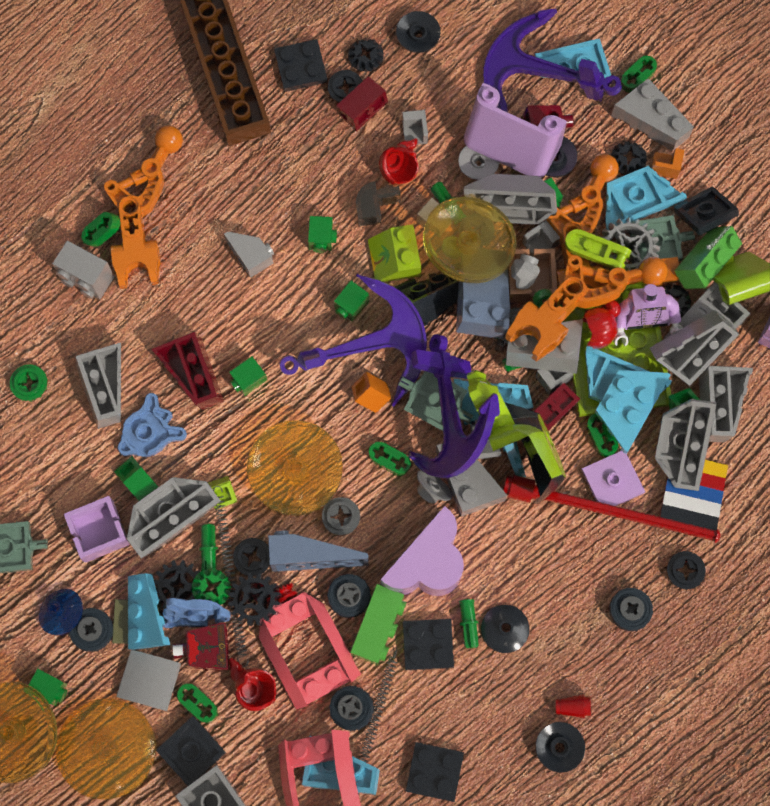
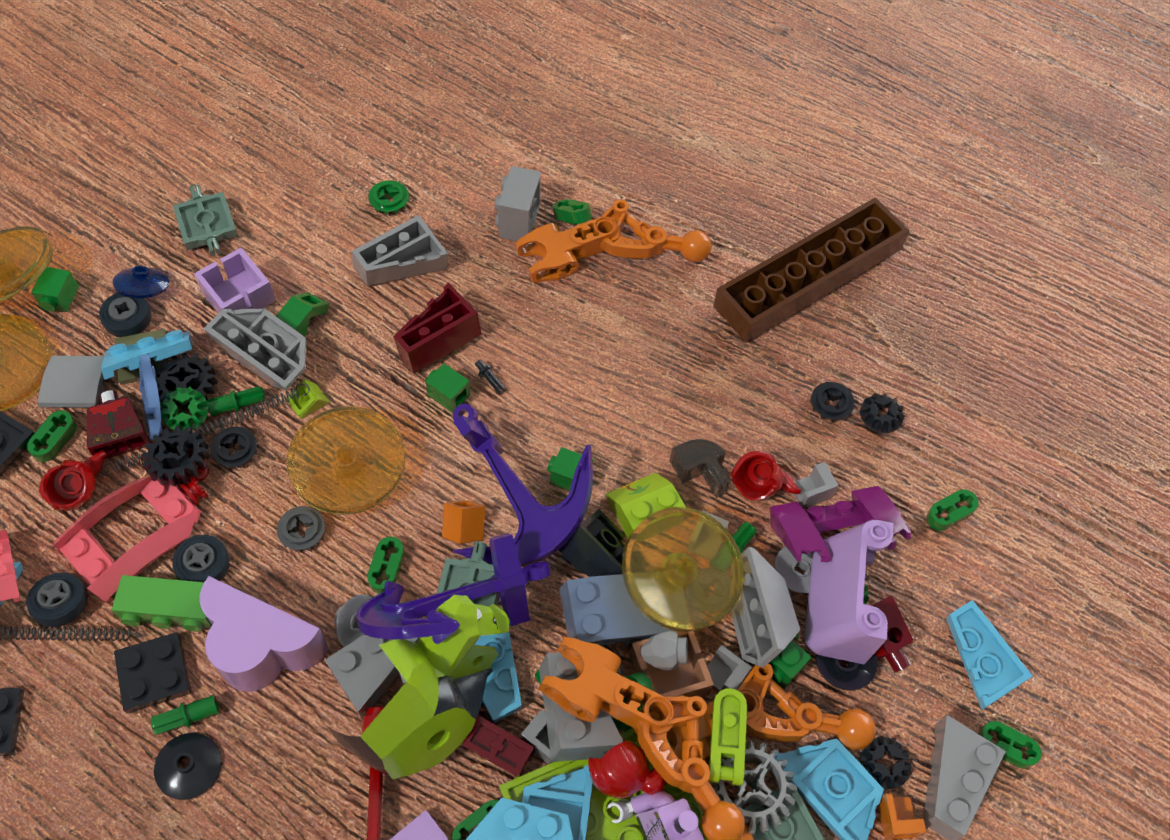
camera: 70 degrees right, 15 degrees down
(148, 430) = (363, 313): medium blue tile -> none
(239, 343) = (485, 371): none -> black piece
(250, 252) = (593, 354): light grey slope -> none
(297, 552) = (241, 495): sand blue slope -> none
(300, 65) = (838, 351): black plate -> none
(321, 234) = (642, 418): green brick -> none
(362, 103) = (819, 422): dark red hinge -> none
(418, 23) = (940, 450): black dish -> none
(445, 149) = (801, 528): none -> magenta wedge
(465, 36) = (948, 505): none -> green beam
(508, 59) = (952, 571): dark purple piece -> none

